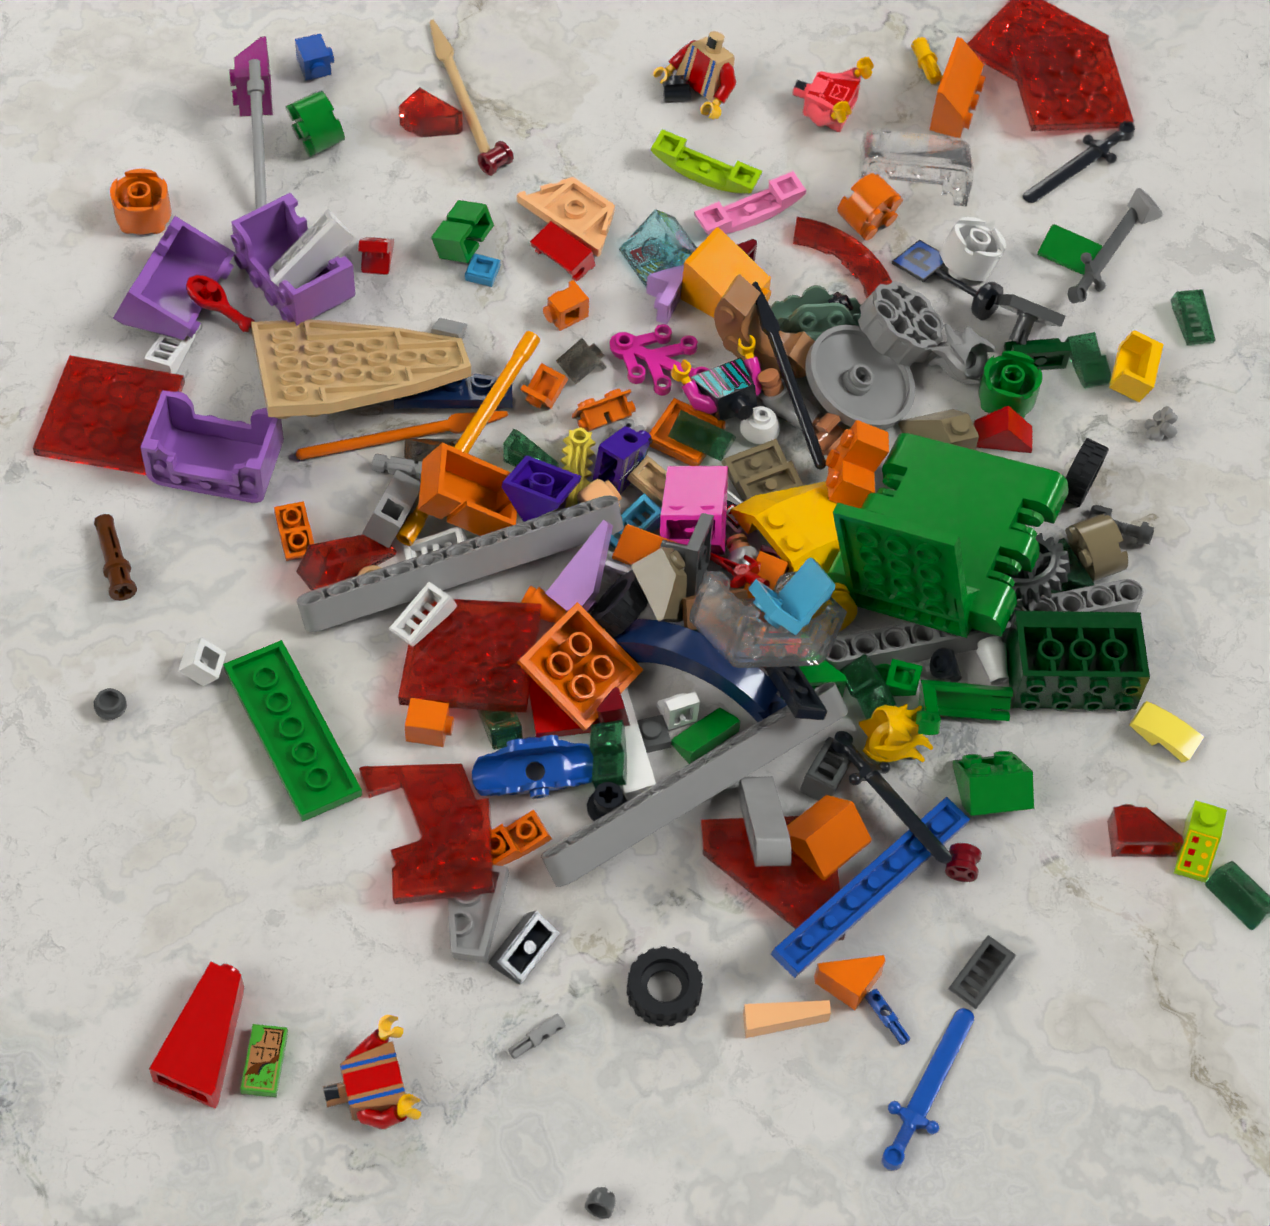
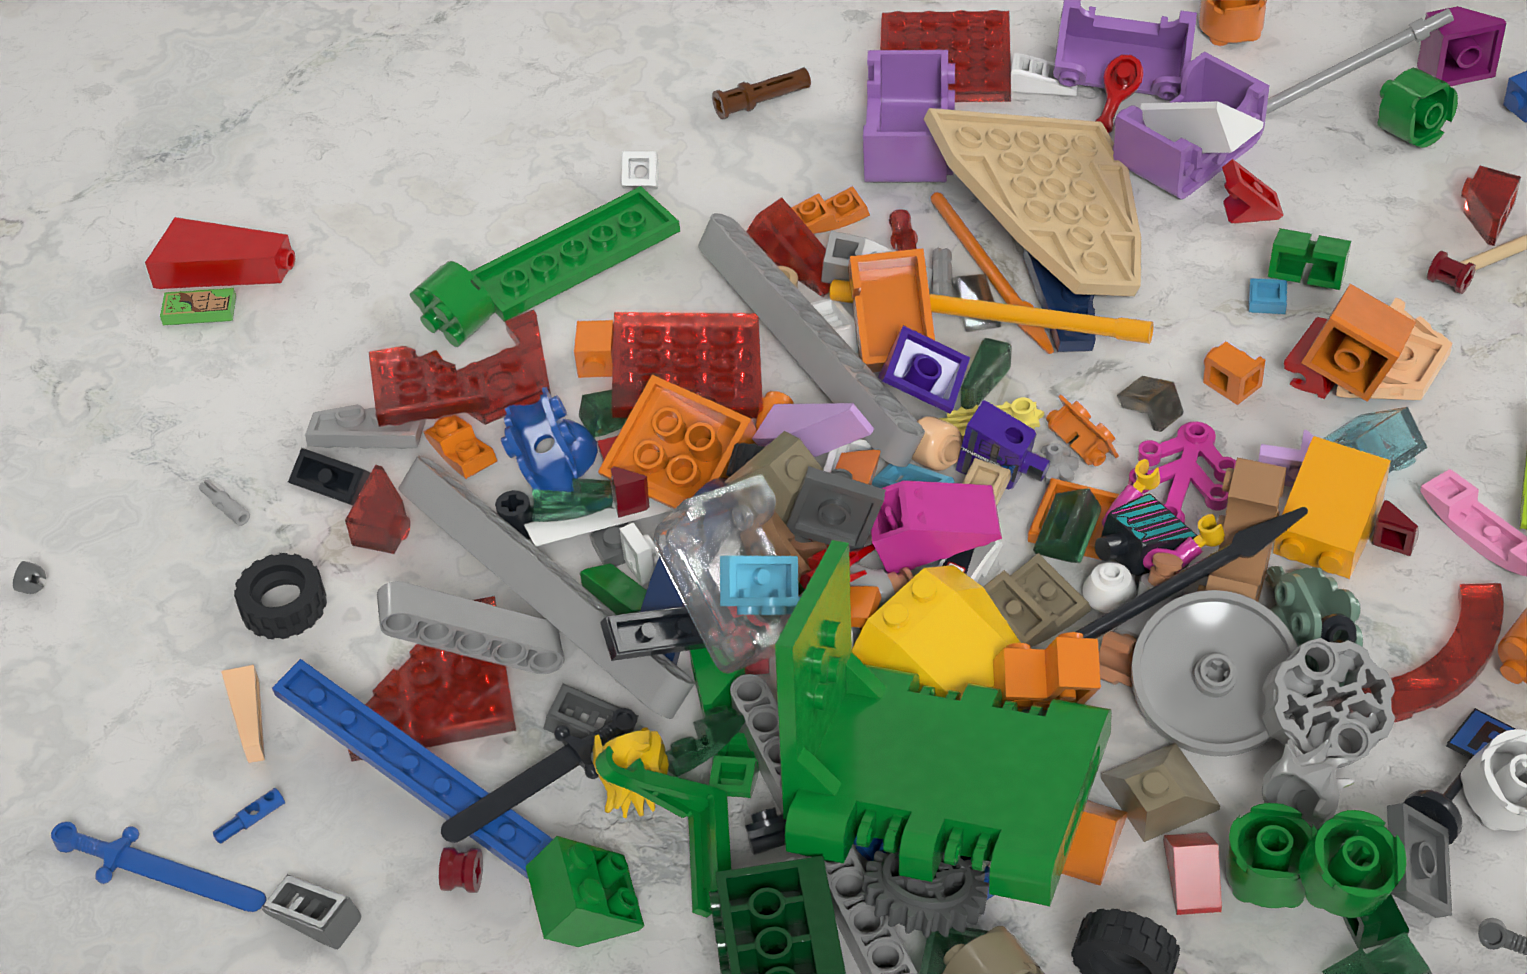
camera: 90 degrees right, 10 degrees down
(110, 704) = (586, 126): dark grey plate -> none
(348, 483) = (903, 235): none -> clear red axle
(349, 823) = (452, 303): none -> green brick
(374, 1081) = (164, 380): torso -> none
(429, 594) = (728, 313): white slope -> none
(449, 328) = (1157, 281): light grey slope -> none
(544, 387) = (1094, 372): orange bracket -> none
(584, 216) = (1359, 342): none -> orange slope
(587, 902) = (378, 515): none -> clear red slope
(828, 835) = (474, 711): orange slope -> none
(850, 978) = (288, 766): orange slope -> none
(1049, 334) = (1351, 864): none -> green brick

